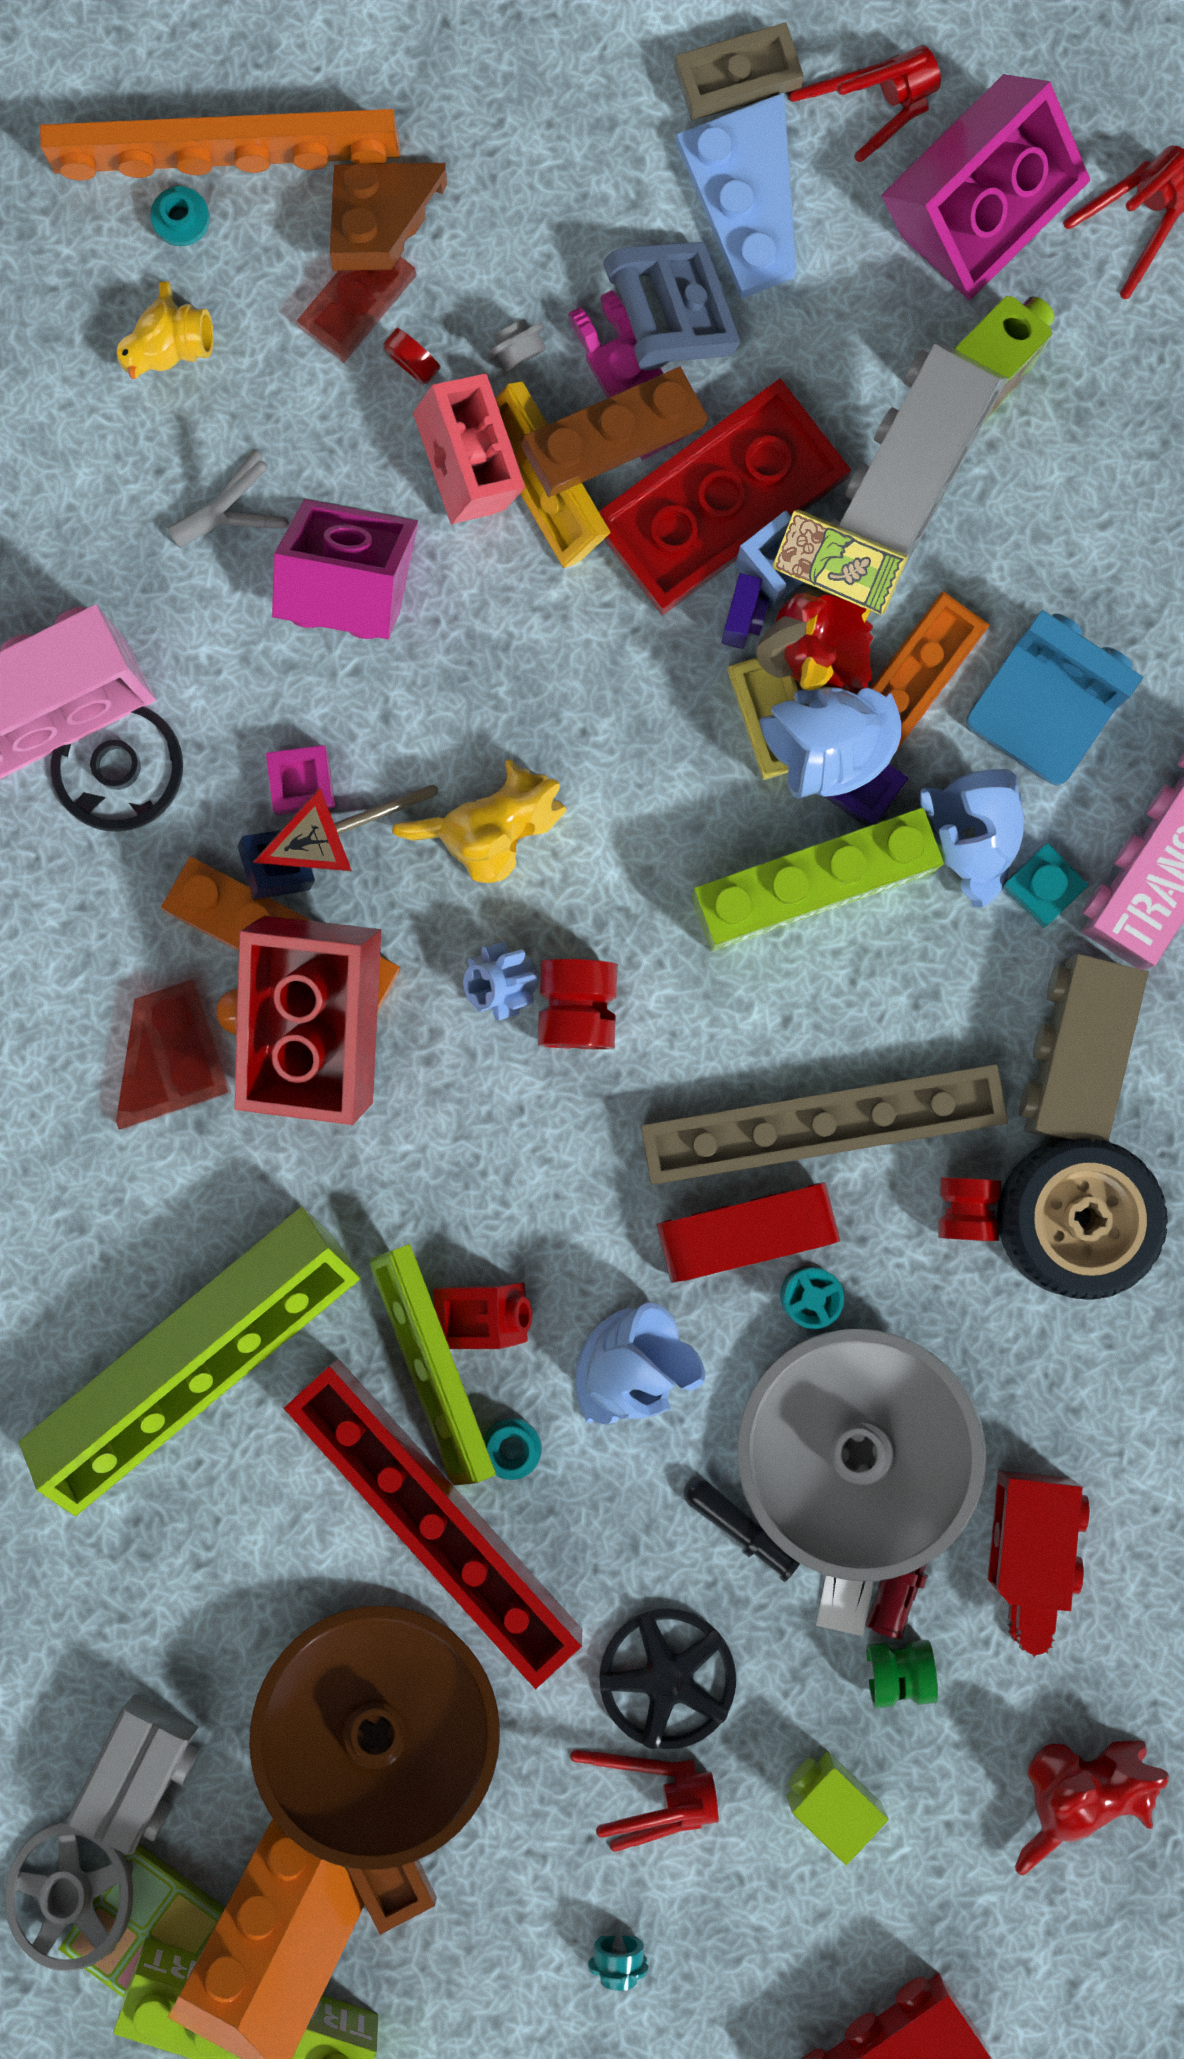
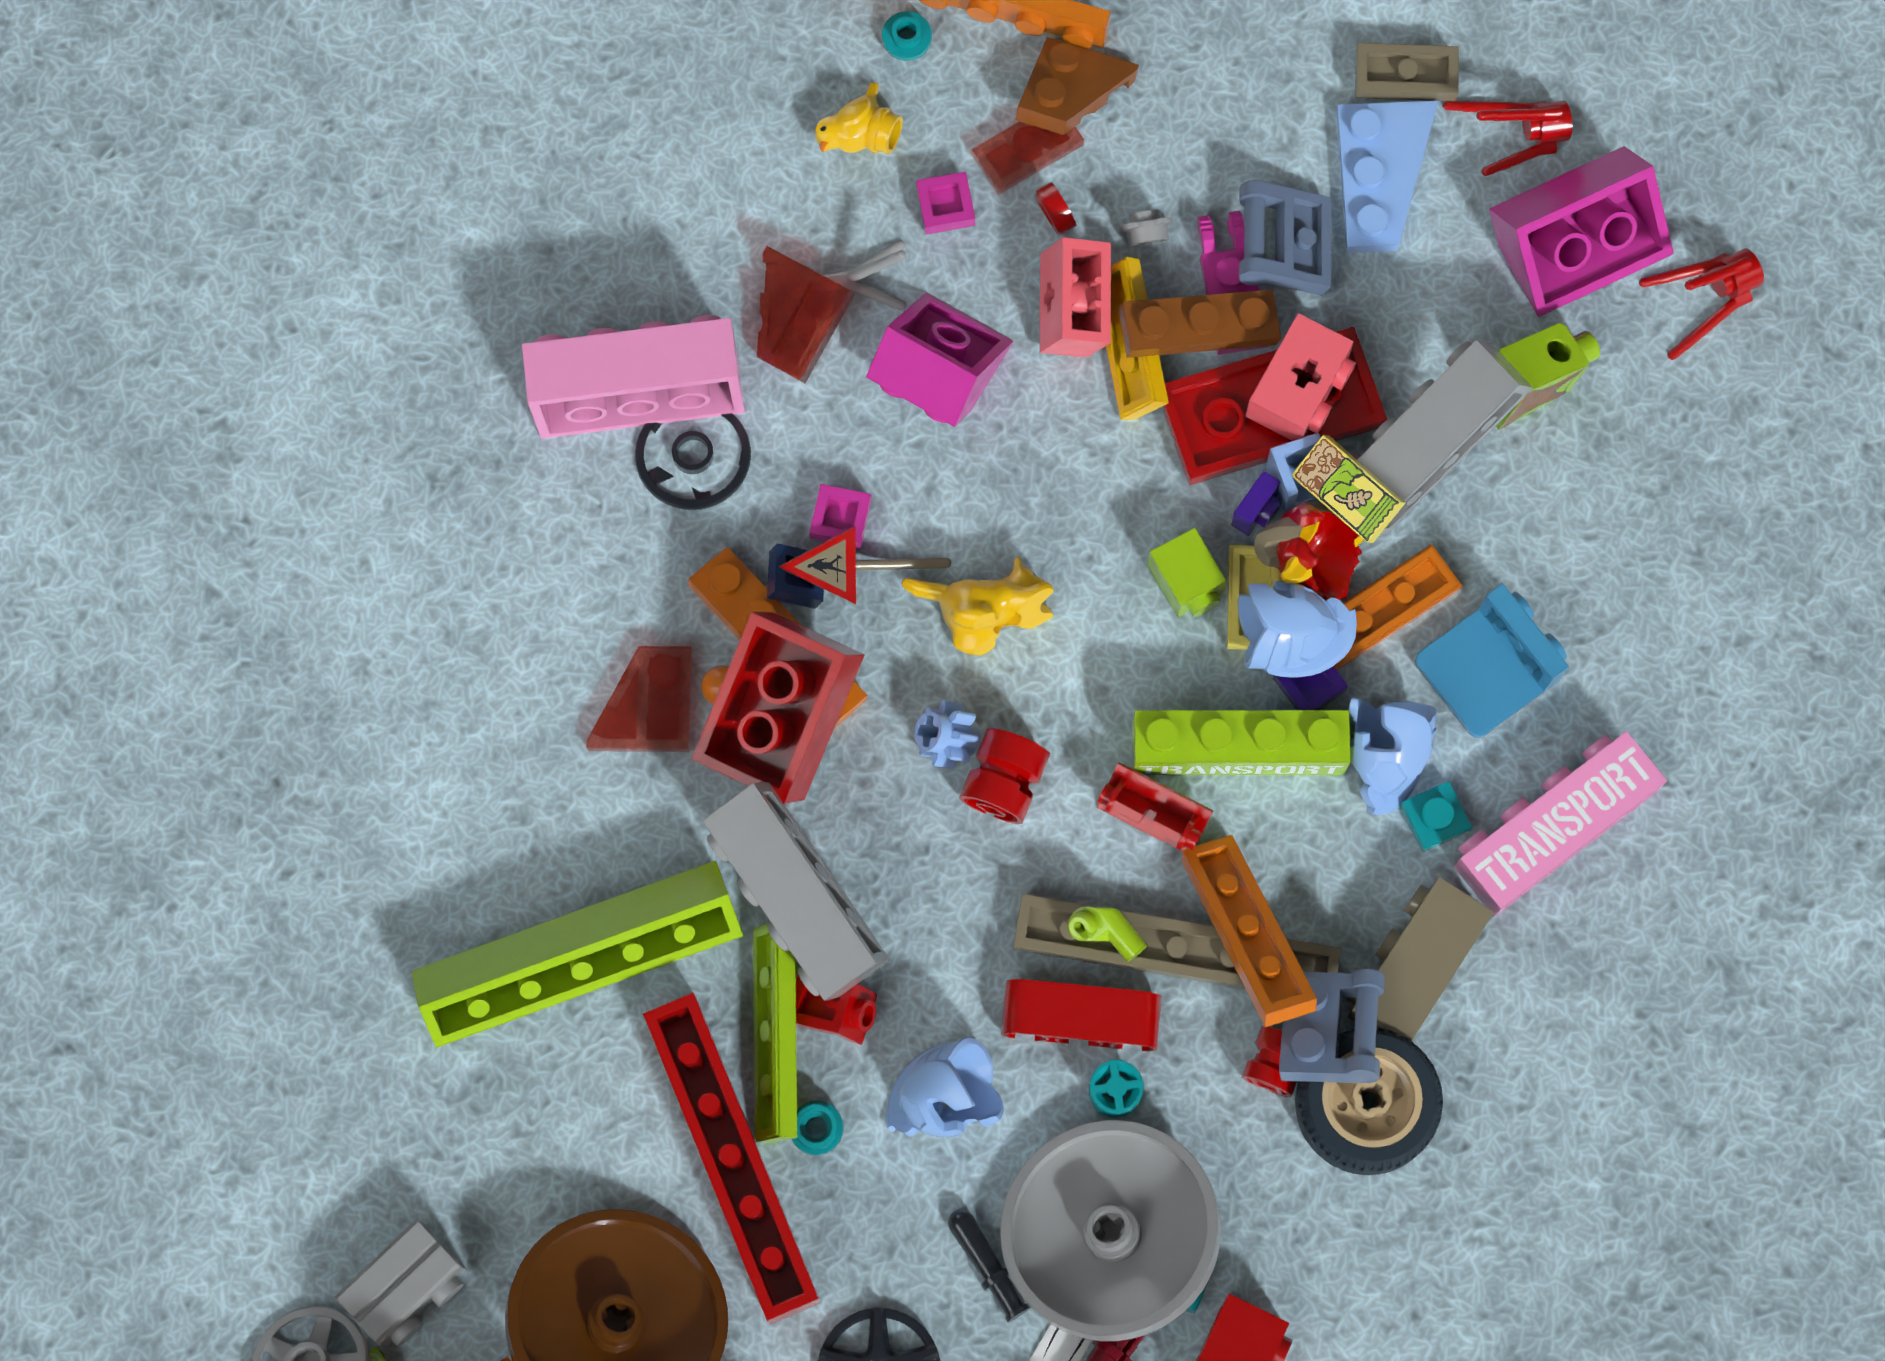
camera: 20 degrees right, 10 degrees down
(174, 572) = (797, 315): none -> clear red wing
(289, 391) = (945, 203): none -> dark pink plate
(399, 1219) = (794, 891): none -> light grey brick
(695, 715) = (1187, 574): none -> lime brick
(745, 1129) = (1106, 925): none -> lime arm
(749, 982) = (1154, 808): none -> red hinge
(755, 423) = (1307, 351): none -> coral brick
(900, 1086) = (1249, 931): none -> orange plate
(1003, 1166) = (1312, 1040): none -> sand blue plate

